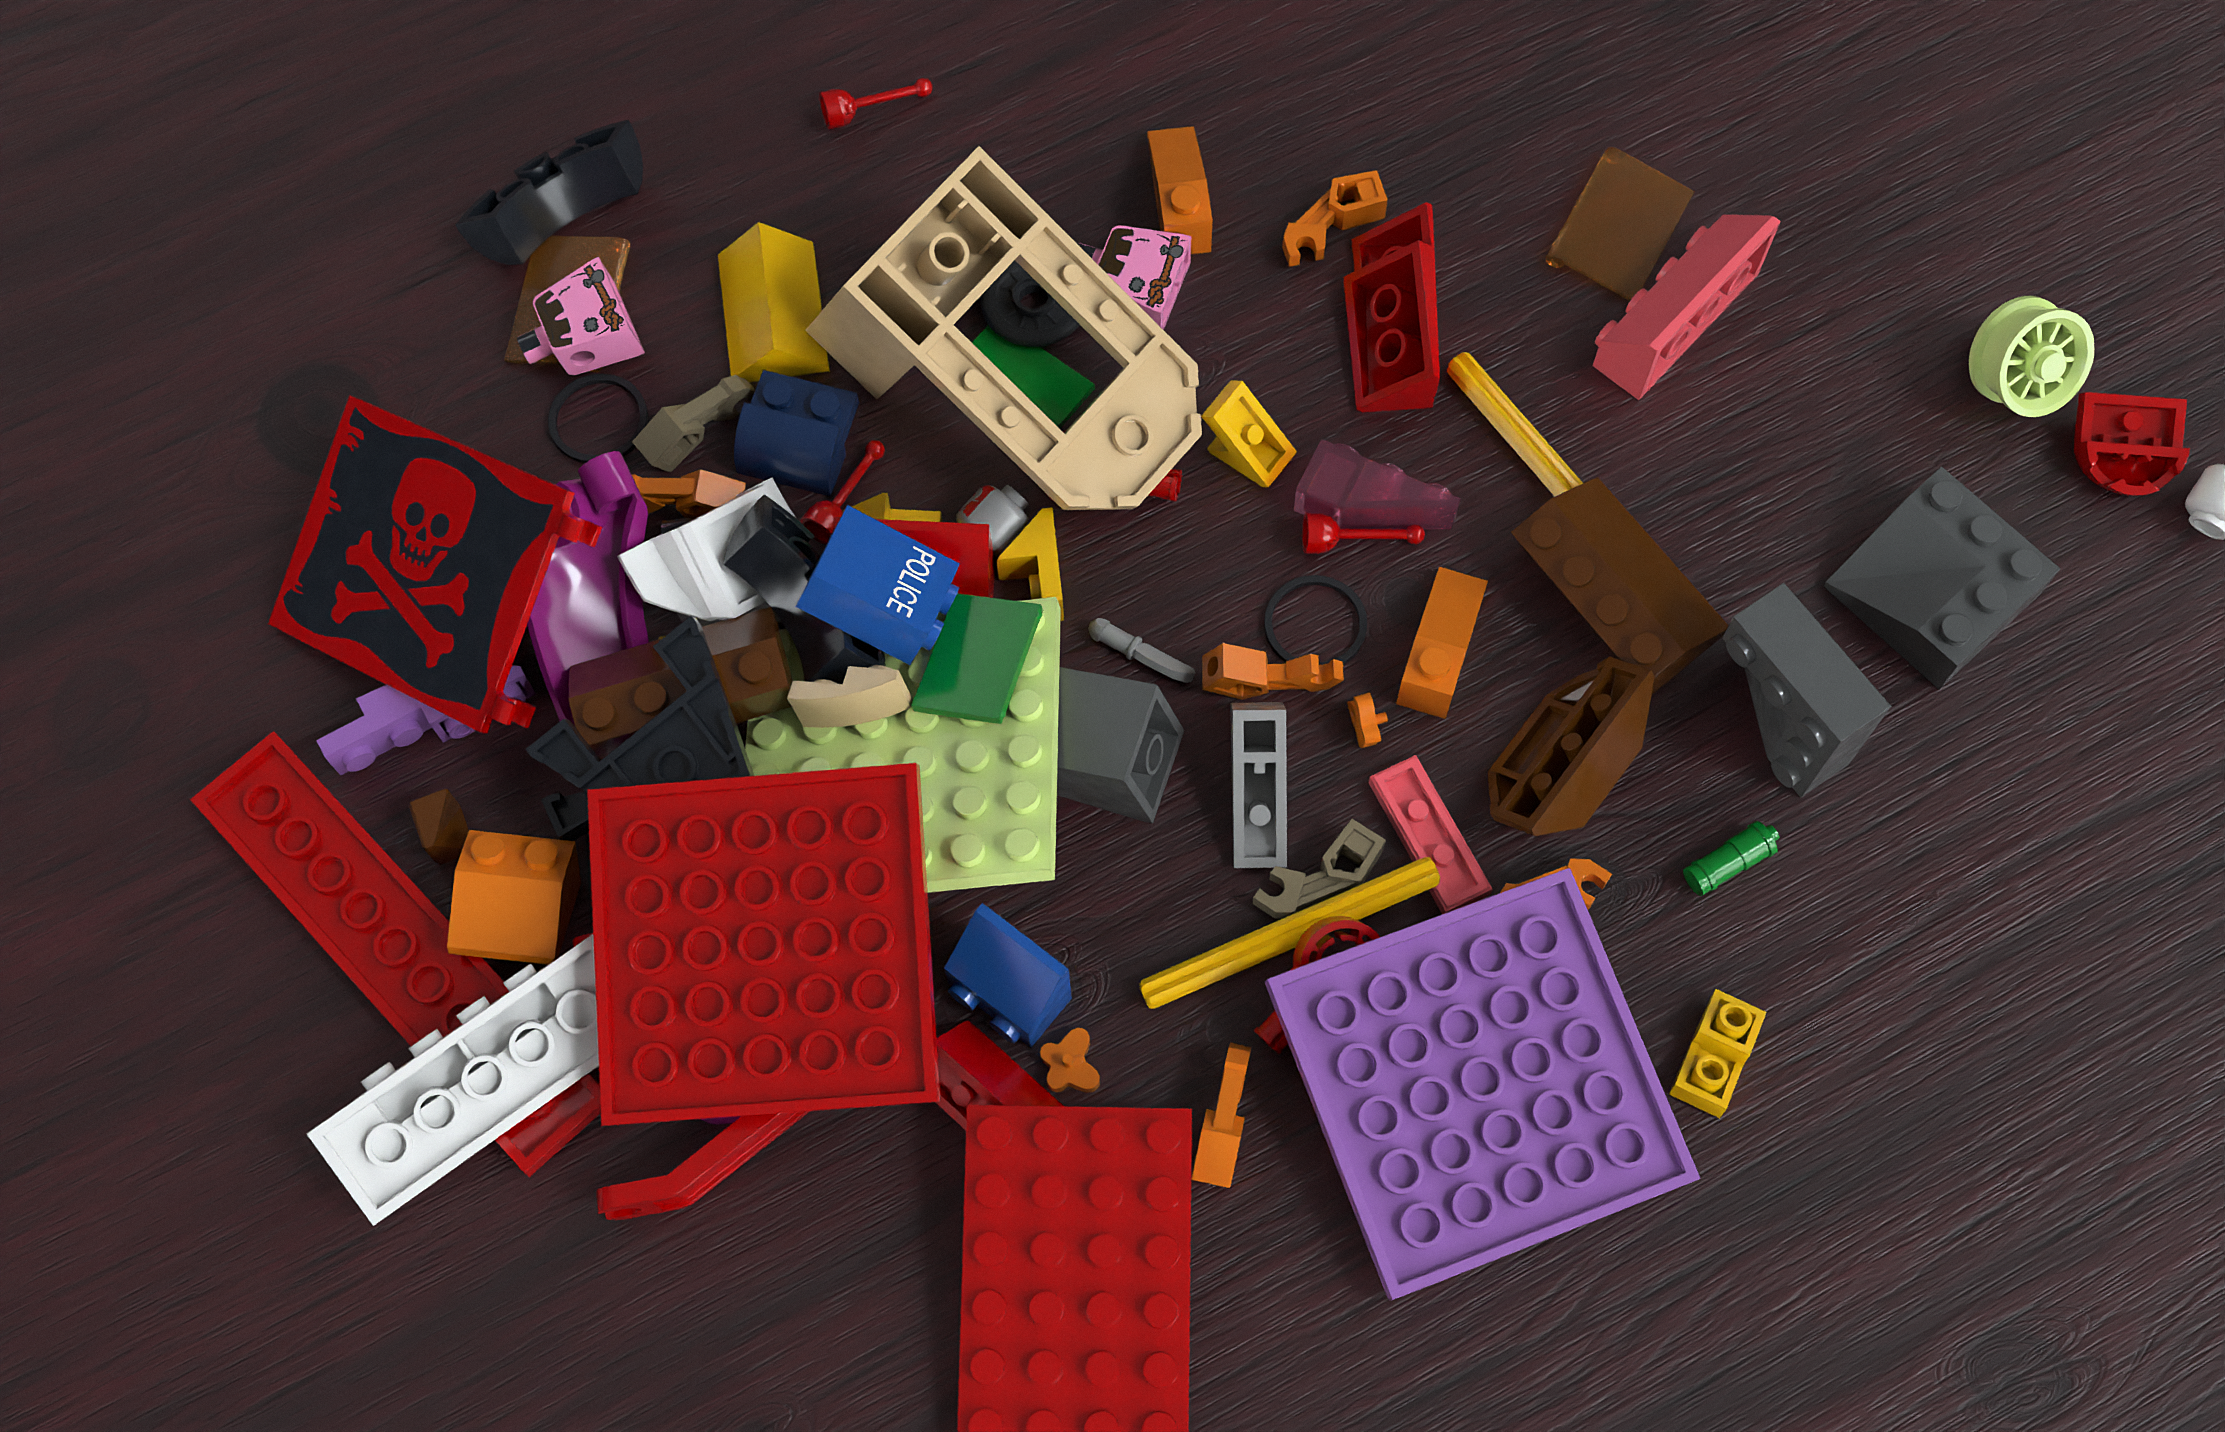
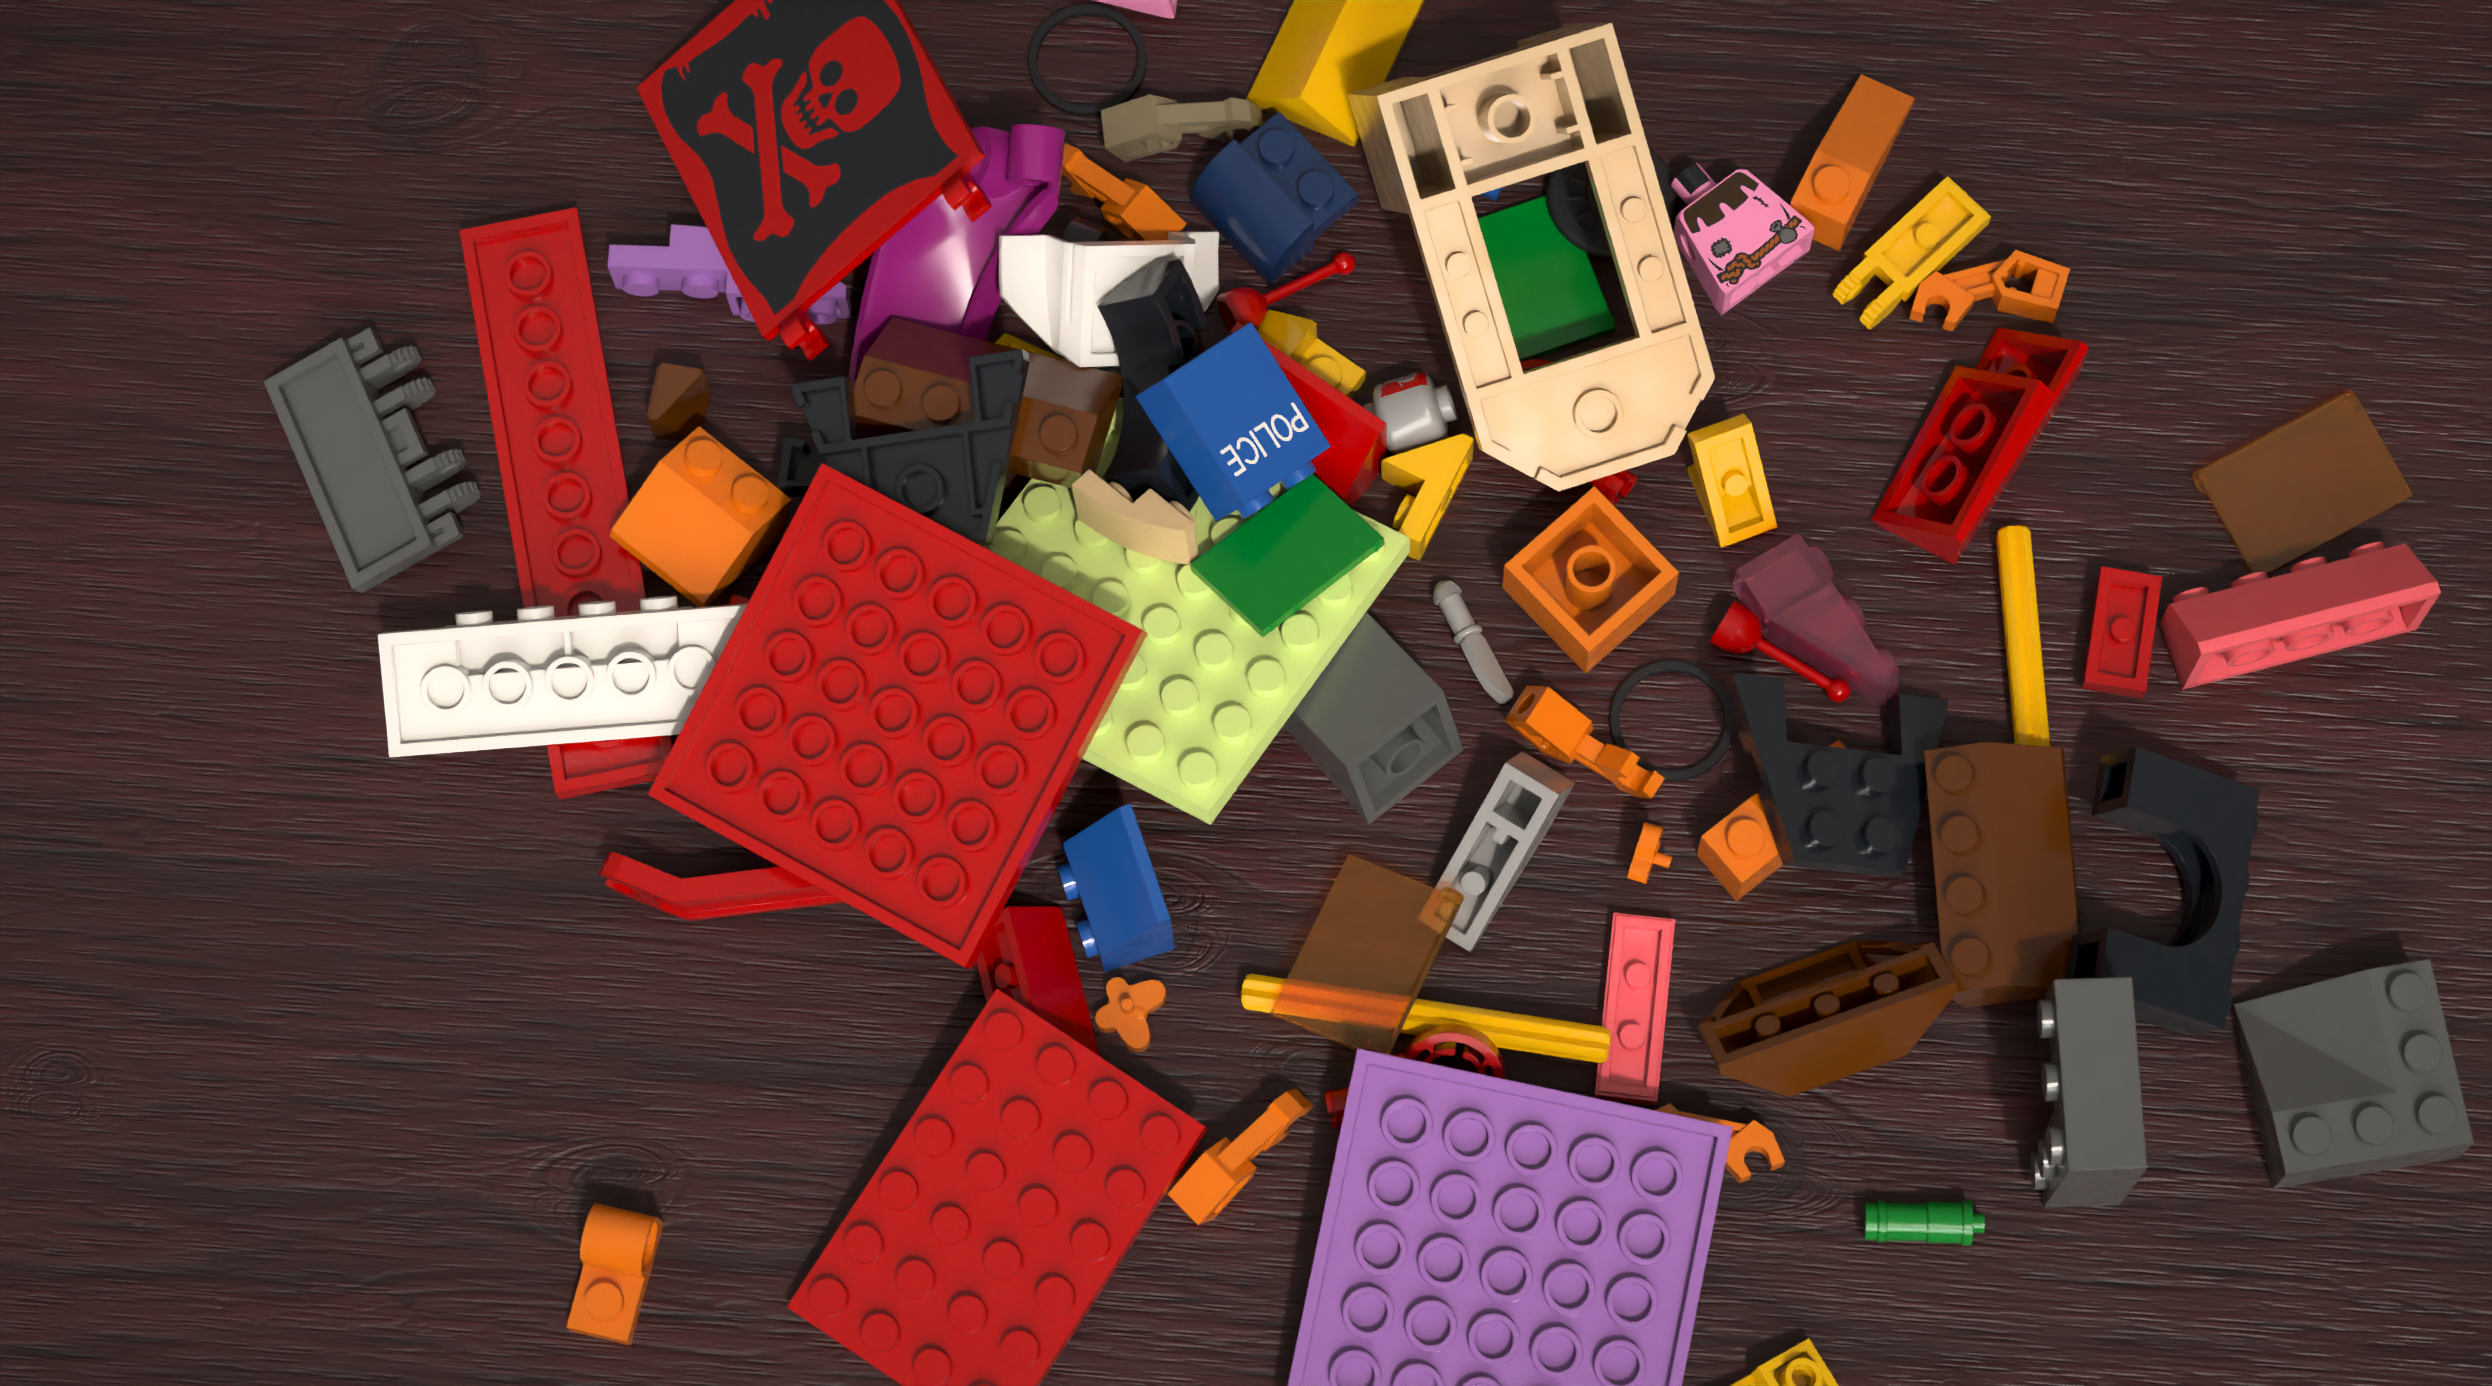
camera: 35 degrees right, 5 degrees up
(208, 1012) = (357, 454): none -> dark grey hinge
(1198, 556) = (1590, 579): none -> orange brick
(1220, 914) = (1367, 956): none -> clear orange piece
(1263, 218) = (1915, 249): none -> yellow hinge
(1300, 892) = (1468, 986): dark tan piece -> none
(1473, 604) = (1833, 802): none -> black wing
(1577, 383) = (2121, 632): none -> red plate
(1732, 476) = (2209, 833): none -> black arch

